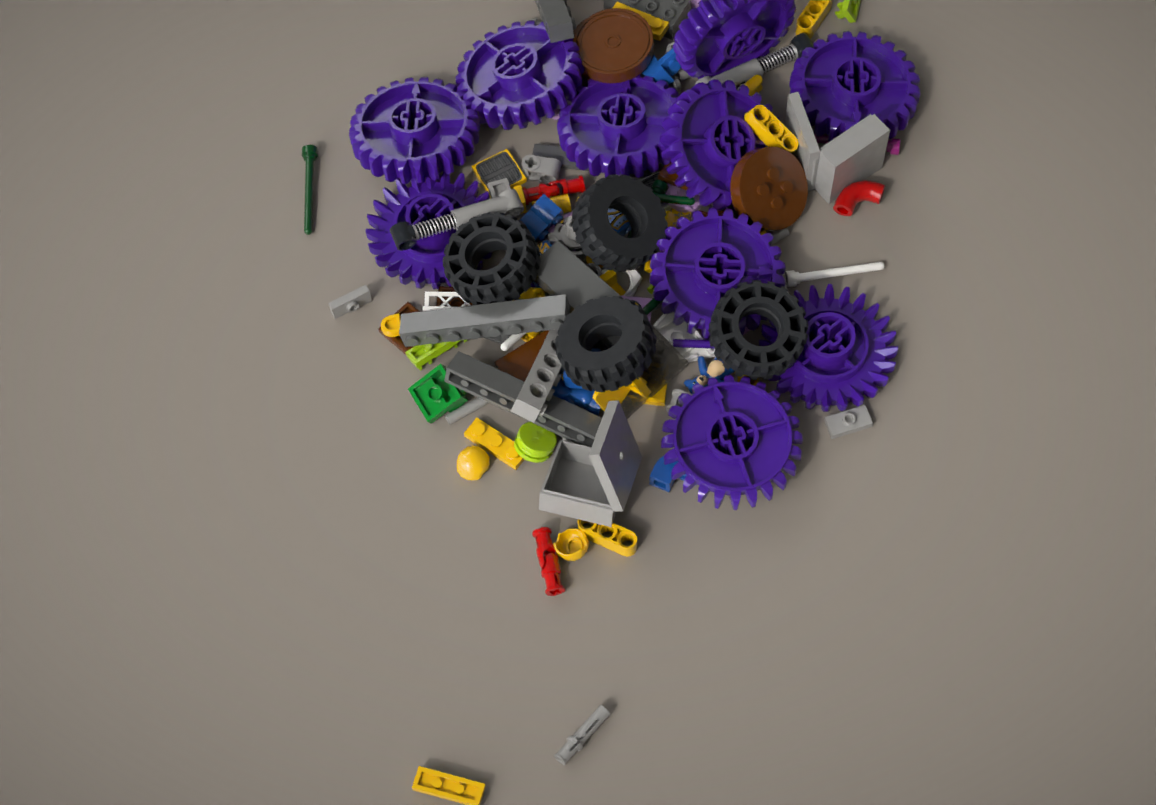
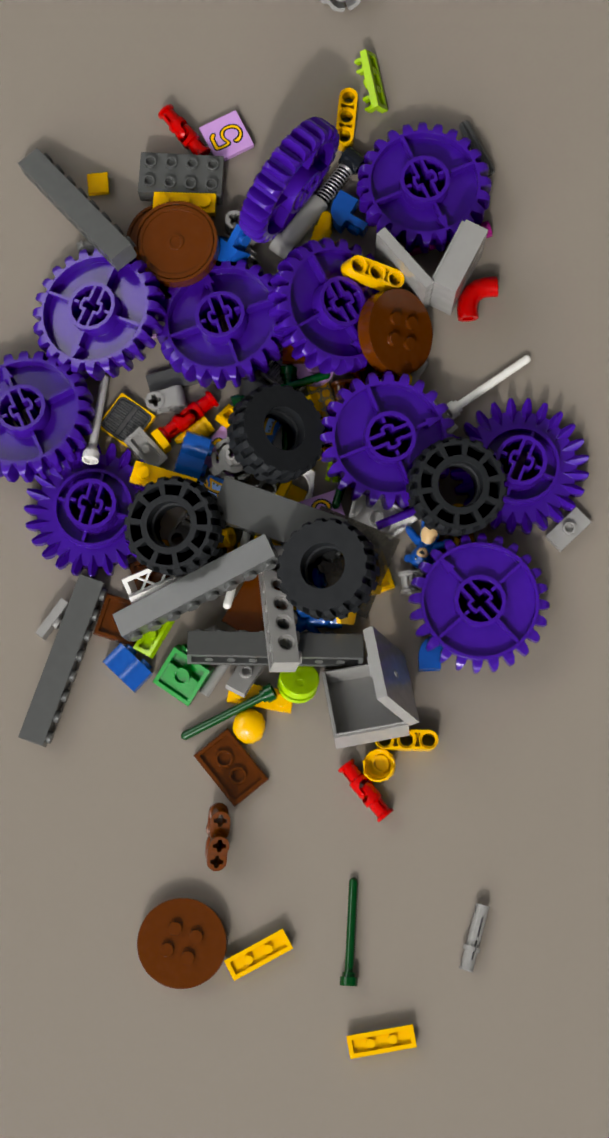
camera: 25 degrees left, 15 degrees up
(315, 618) = (182, 943): none -> reddish brown brick
(339, 339) = (62, 661): none -> dark grey brick
(377, 659) = (258, 954): none -> yellow plate
(387, 543) = (217, 841): none -> reddish brown axle
(390, 325) = (106, 626): yellow tile -> none
(393, 368) = (128, 667): none -> blue brick
(406, 235) = (157, 462): piece -> none
(438, 491) = (231, 767): none -> reddish brown tile
(448, 717) = (349, 977): none -> dark green piece
(452, 179) = (91, 454): none -> white piece
(490, 418) = (243, 679): none -> light grey plate
(501, 439) = (266, 694): none -> dark green piece
(774, 84) = (343, 215): none -> blue brick
(918, 60) = (468, 131): none -> dark grey axle

